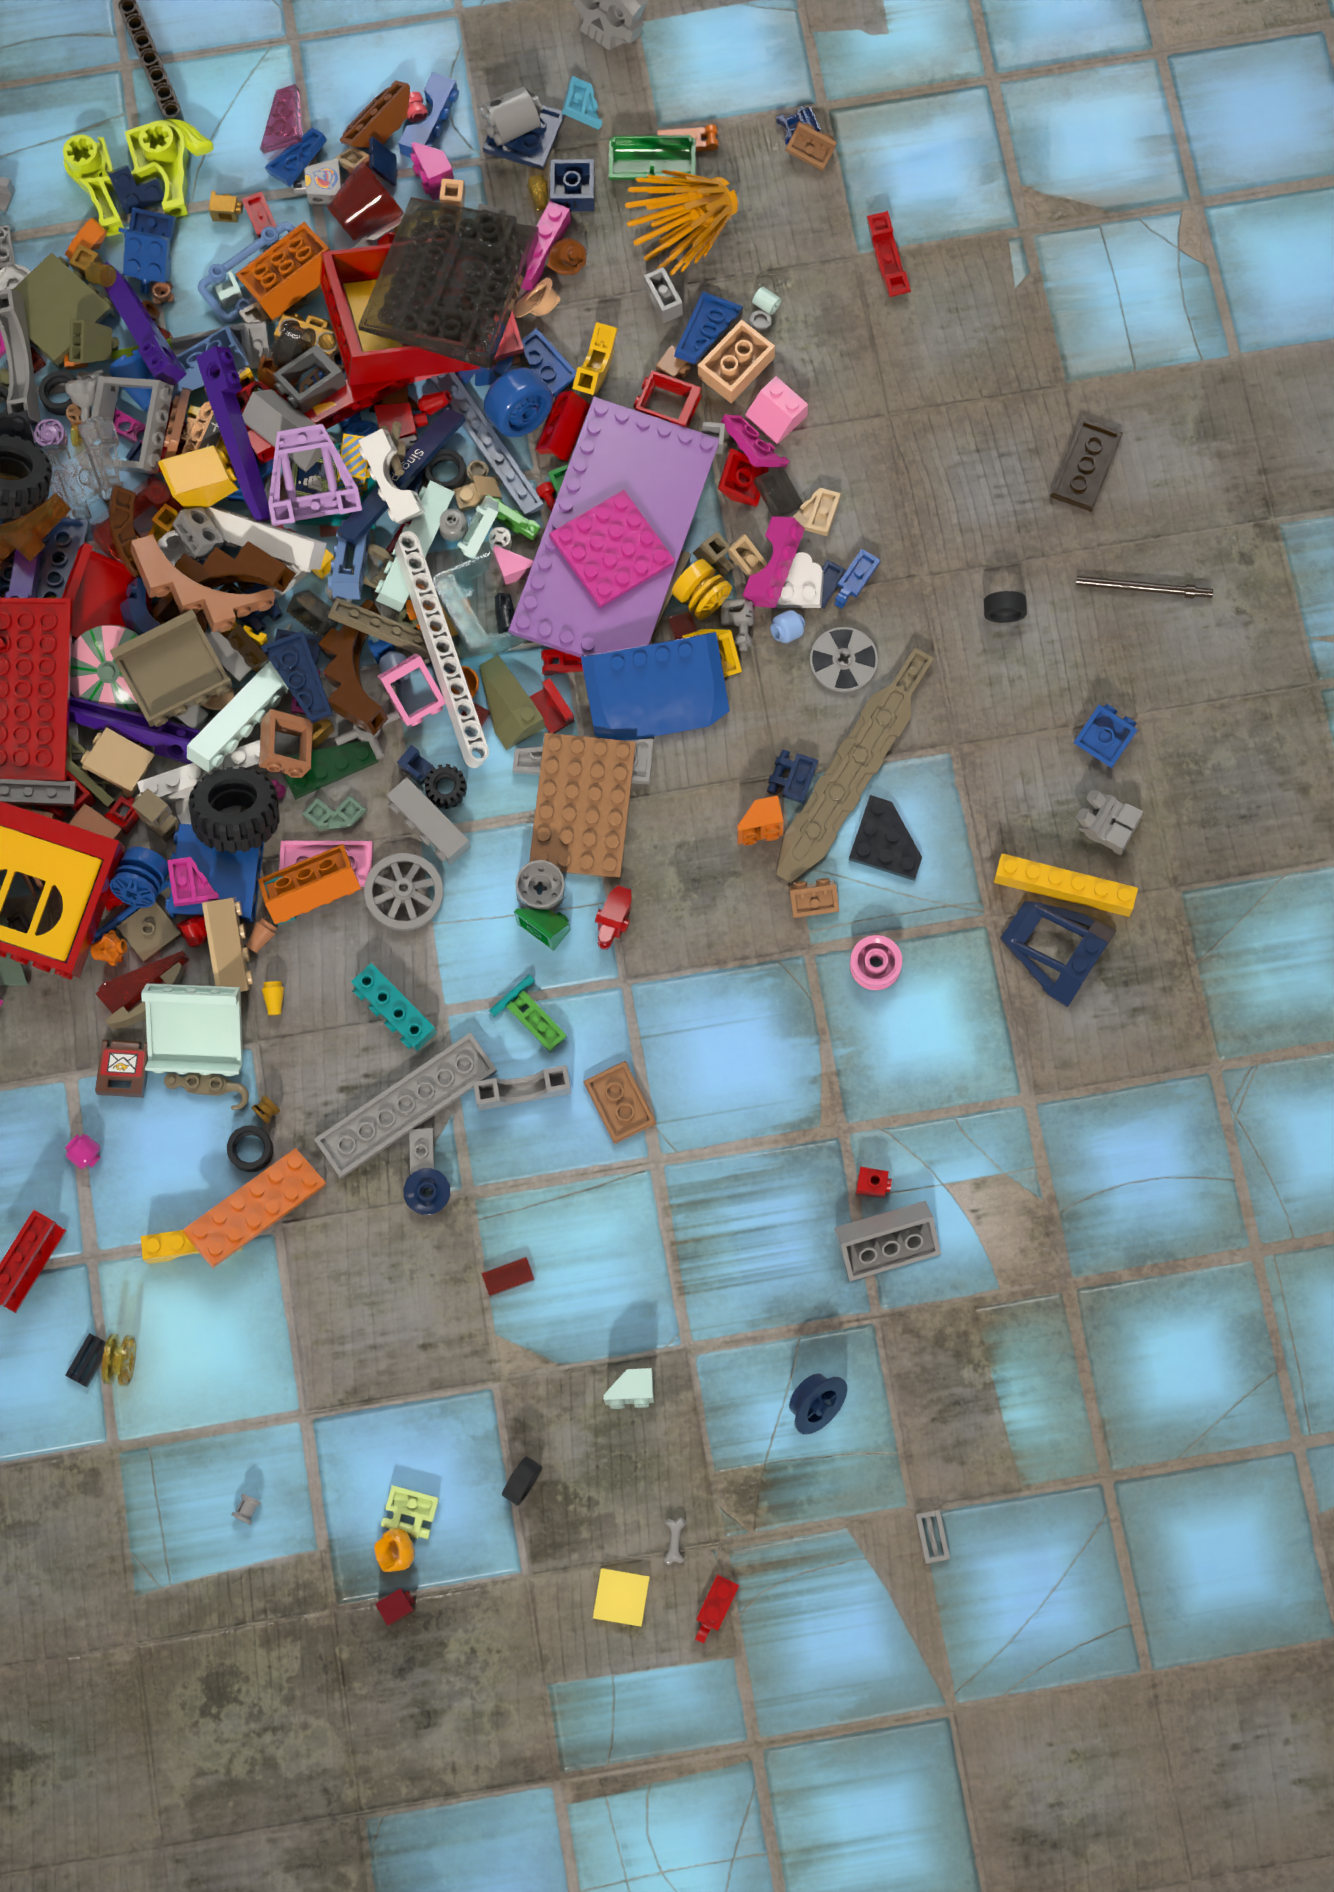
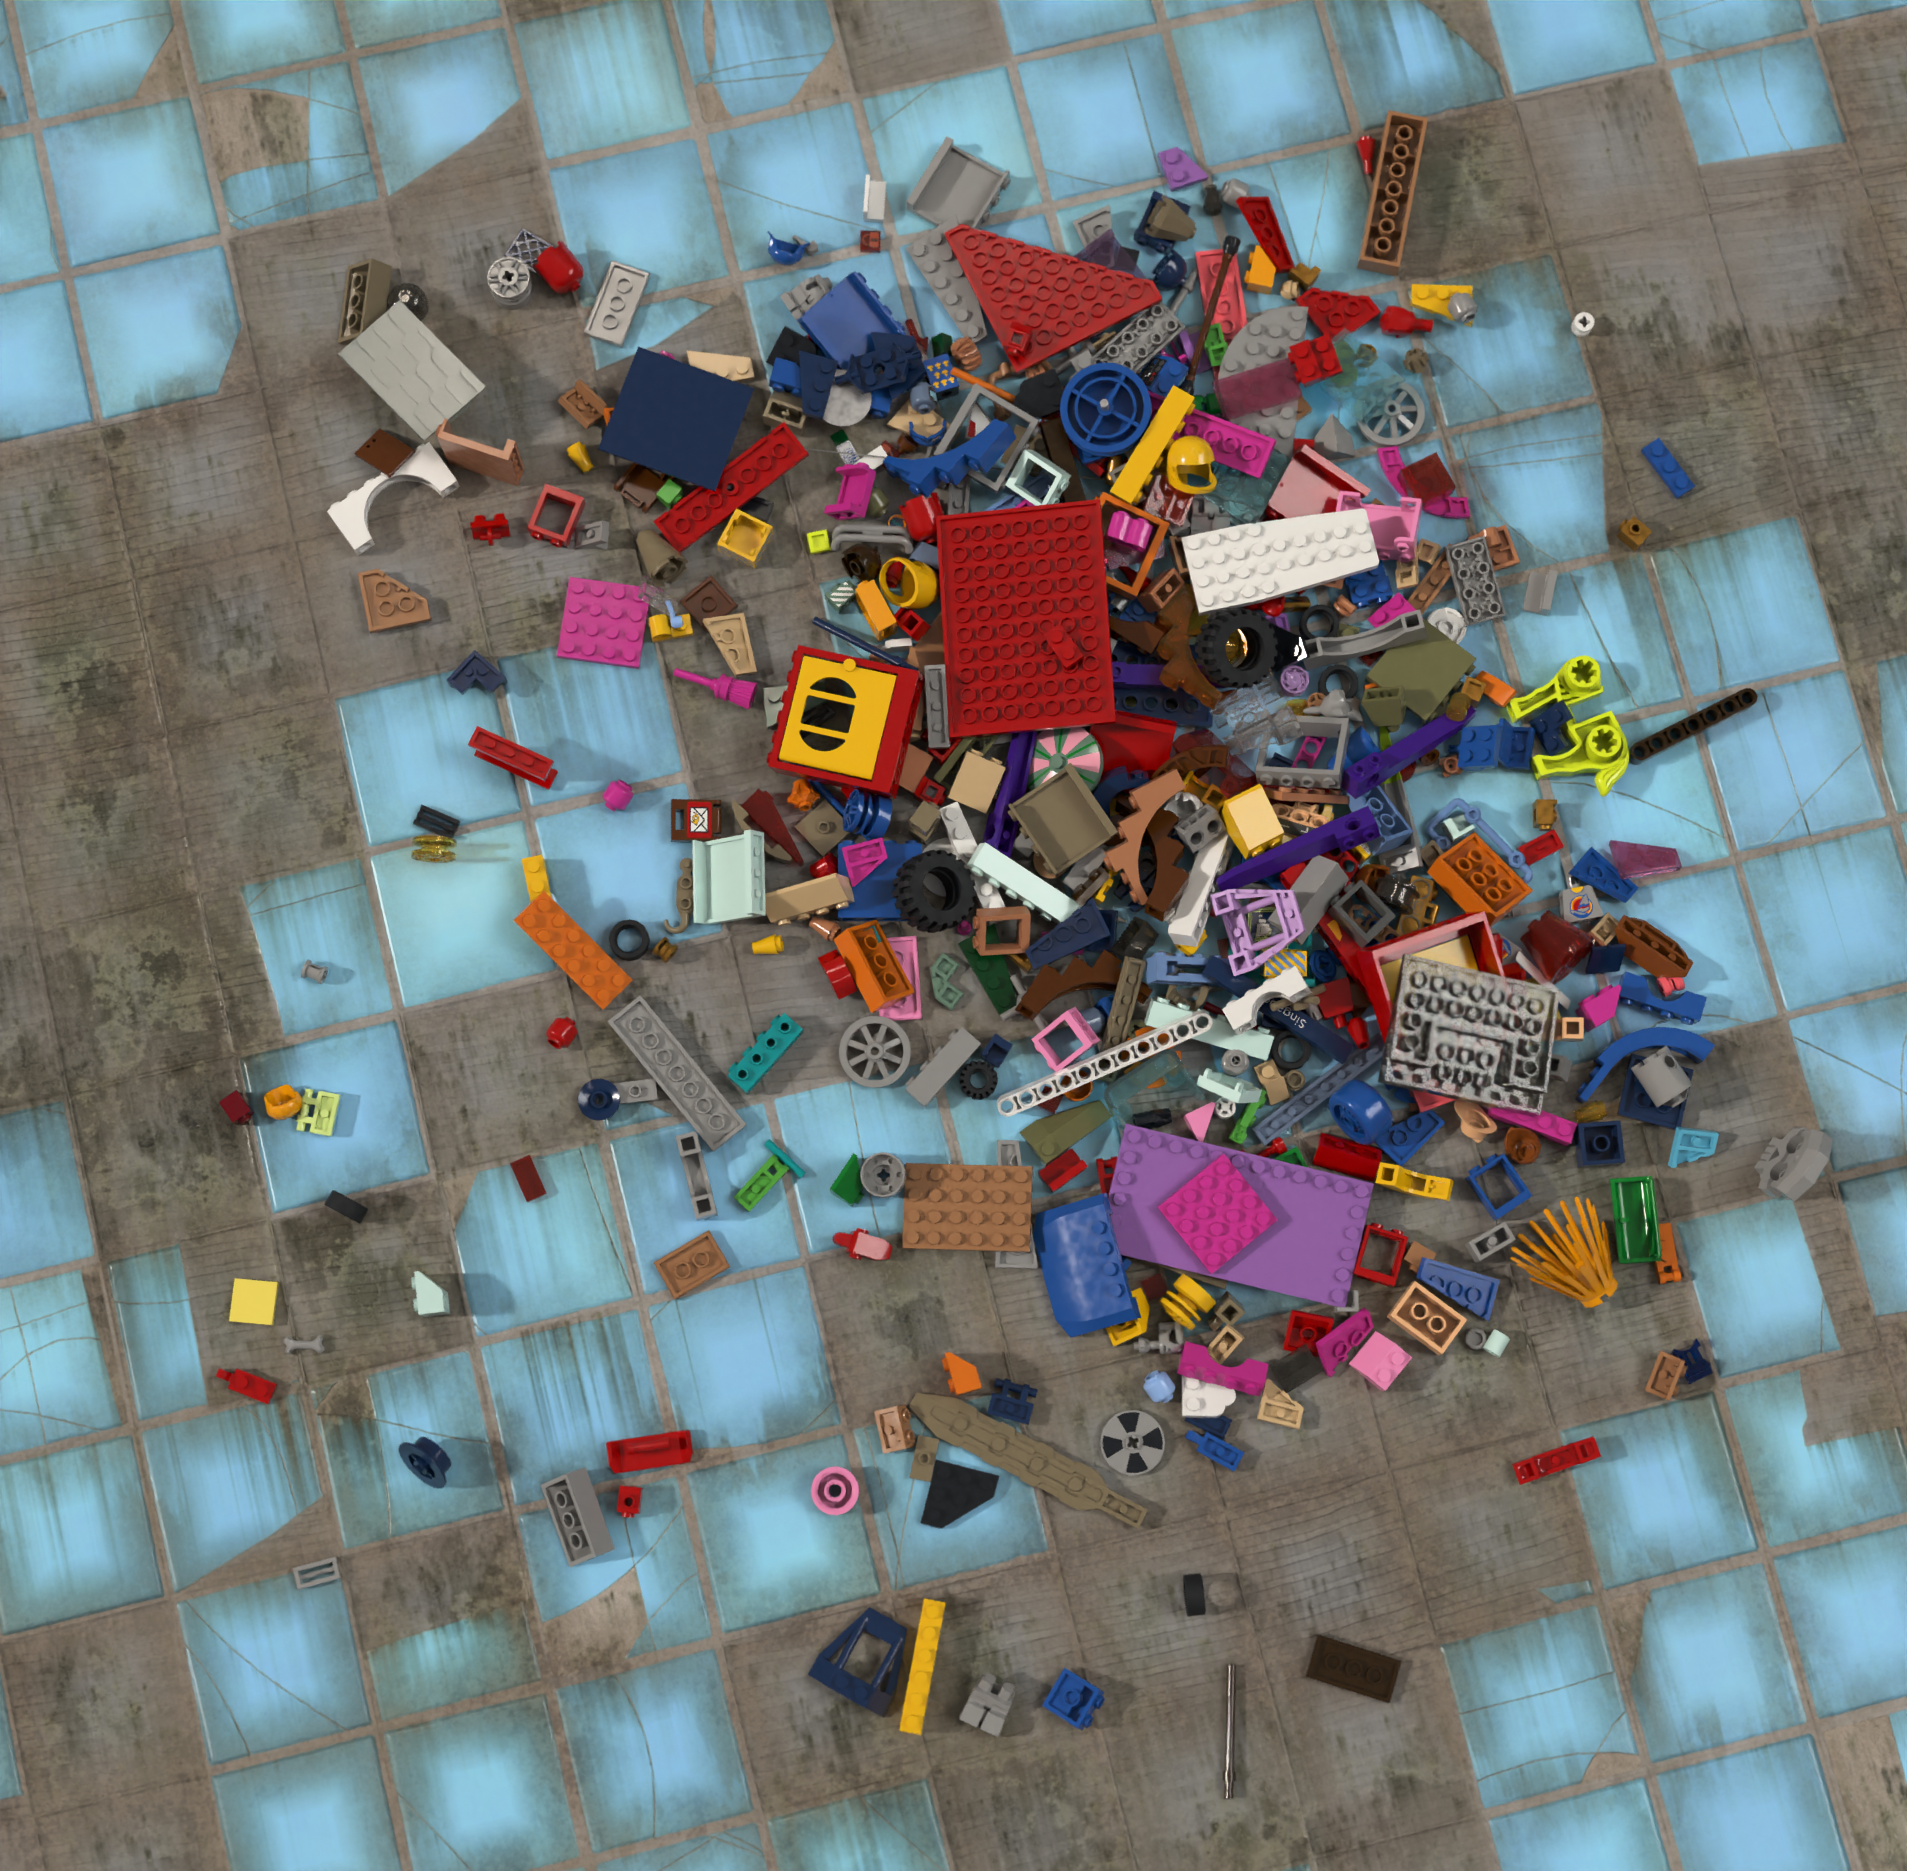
camera: 75 degrees right, 5 degrees up
(312, 922) = (837, 974): none -> red brick
(347, 1228) = (561, 1033): none -> red head
(481, 90) = (1675, 1039): none -> blue arch
(599, 268) = (1523, 1195): none -> blue window
(820, 1158) = (649, 1451): none -> red piece
(846, 870) = (924, 1458): none -> dark tan plate

